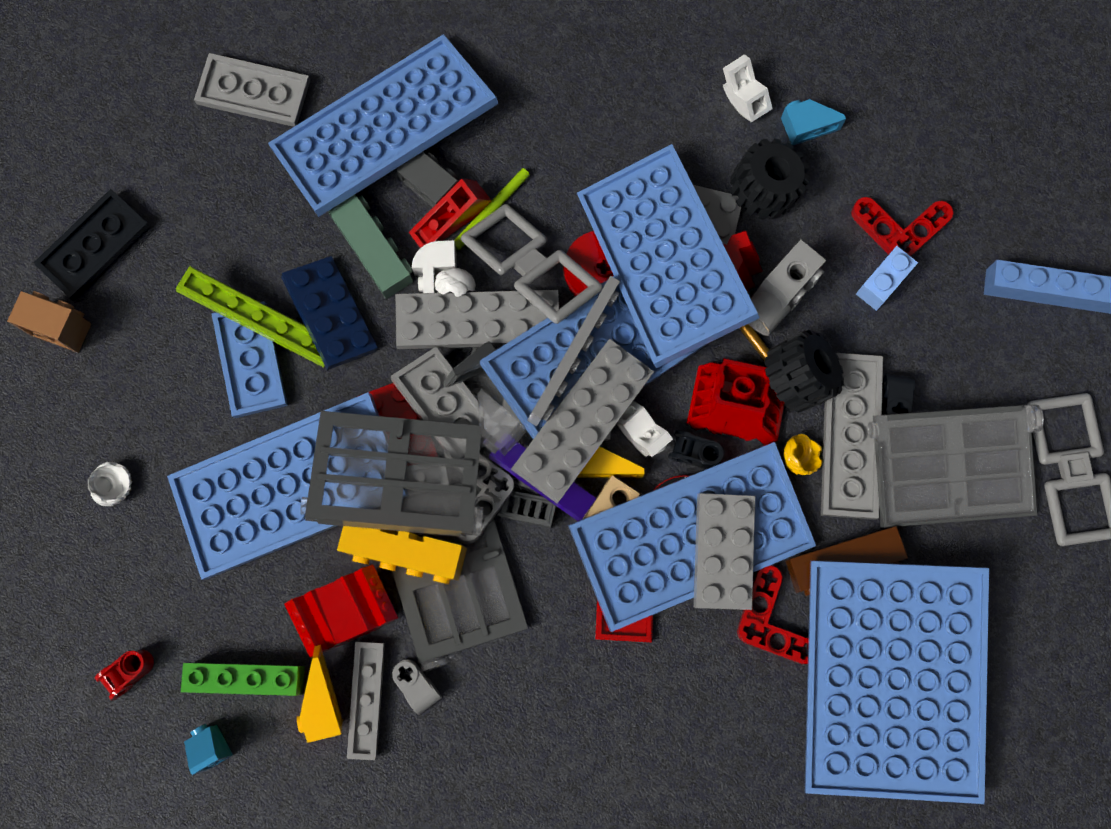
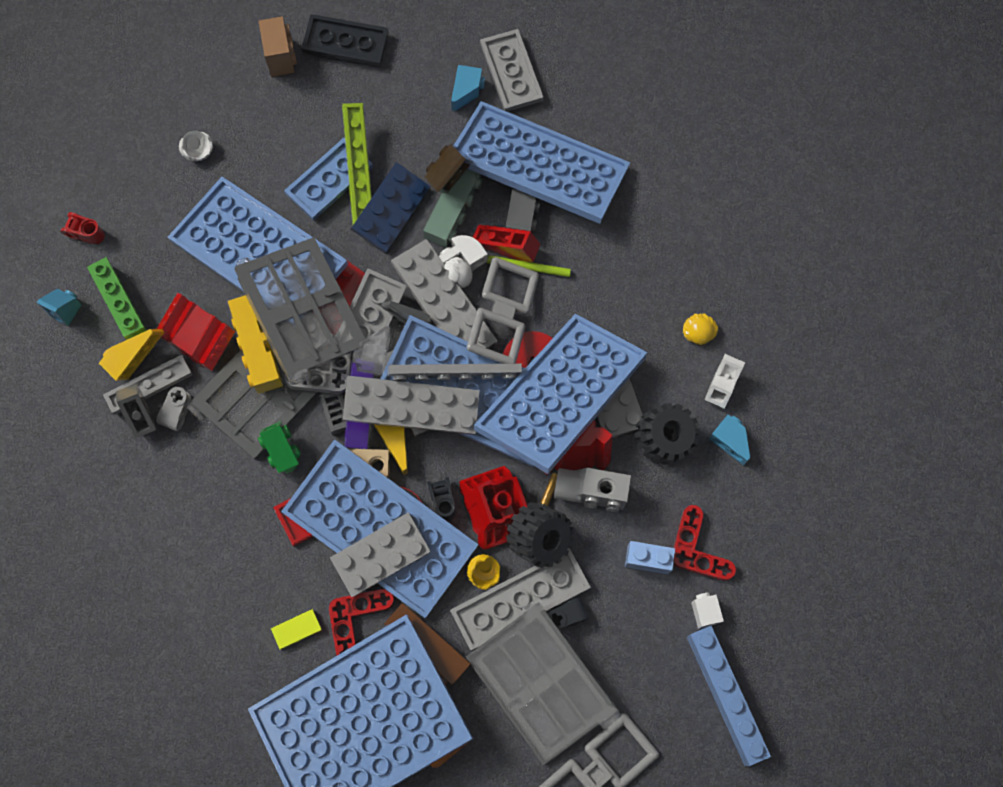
camera: 55 degrees right, 5 degrees down
(238, 146) = (466, 86): none -> dark azure slope
(334, 219) = (447, 169): none -> dark brown slope
(393, 730) = (136, 410): none -> dark grey brick
(542, 592) = (283, 454): none -> green brick
(643, 431) = (434, 452): white brick -> none
(671, 80) = (700, 329): none -> yellow hair
(746, 691) = (296, 629): none -> neon yellow tile
(973, 256) = (707, 610): none -> white brick

